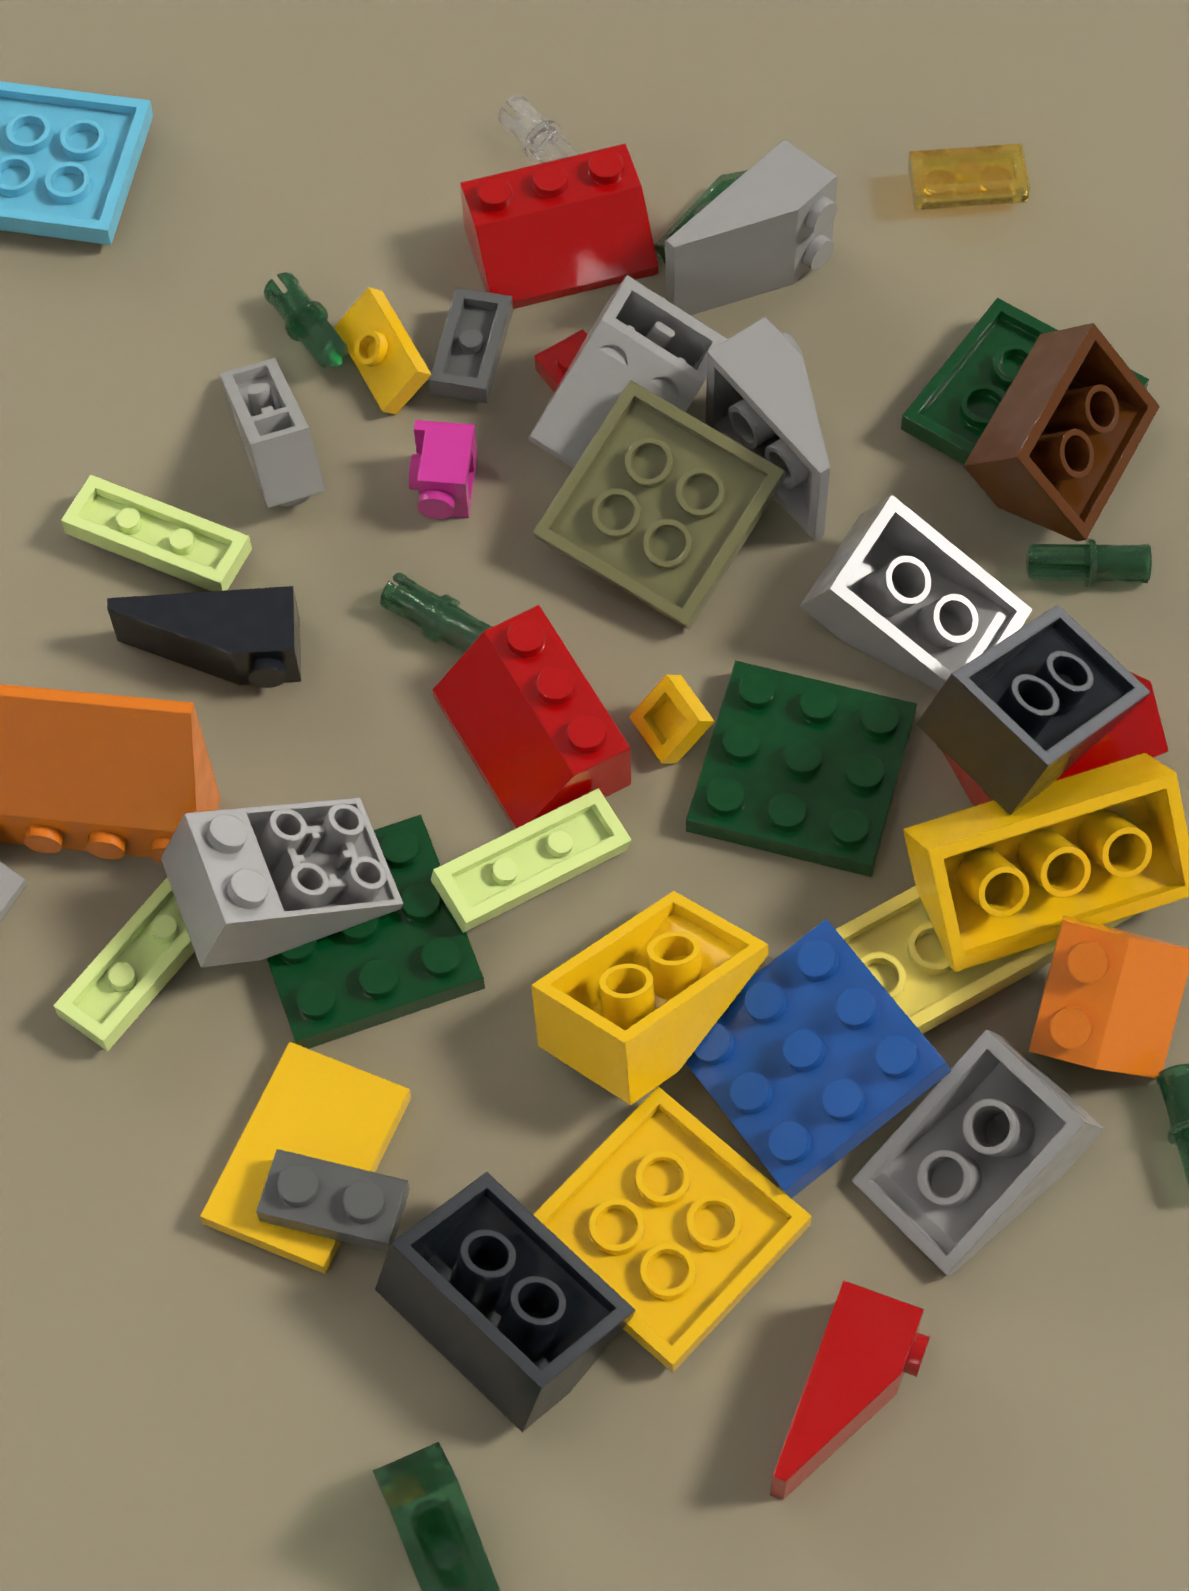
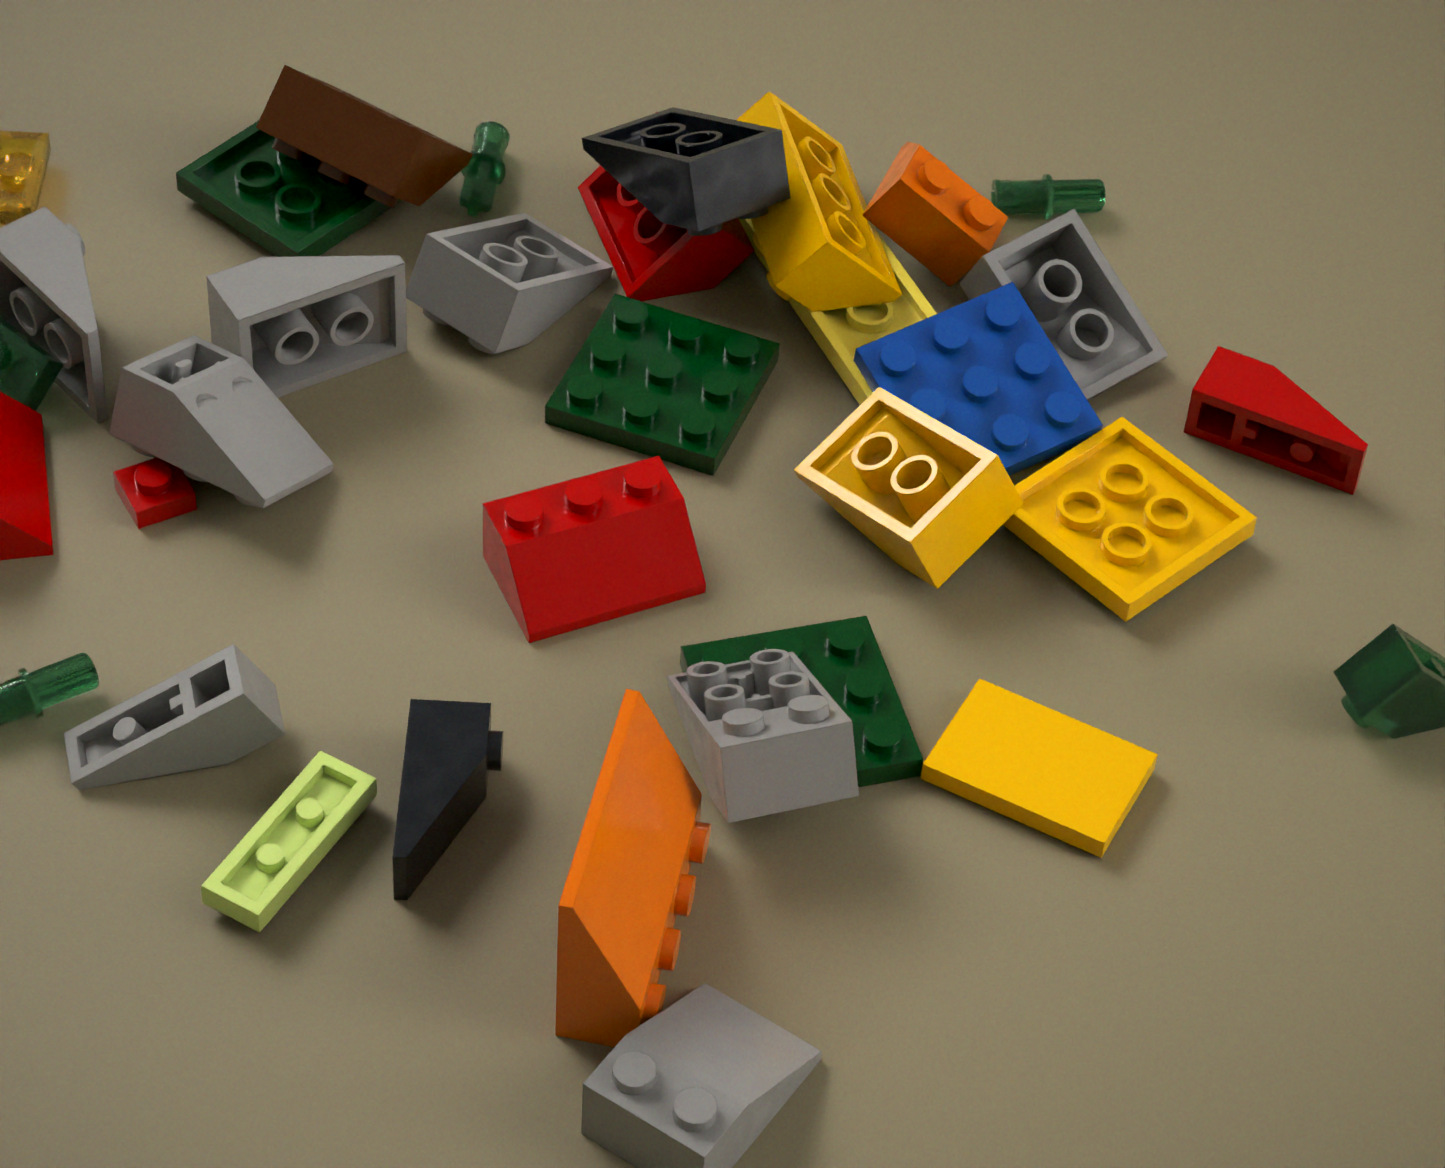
camera: 90 degrees left, 15 degrees down
(128, 971) = (820, 878): yellowish green plate -> none
(333, 1200) = (1097, 733): dark grey plate -> none
(382, 351) = (97, 625): yellow plate -> none
(434, 614) = (447, 616): clear green pin -> none
(444, 468) = (270, 588): dark pink brick -> none
(471, 345) = (107, 559): dark grey plate -> none
(502, 1299) = (1203, 617): black slope -> none
(530, 860) = (752, 565): yellowish green plate -> none
(659, 504) = (369, 418): olive plate -> none
(671, 719) = (604, 445): yellow plate -> none

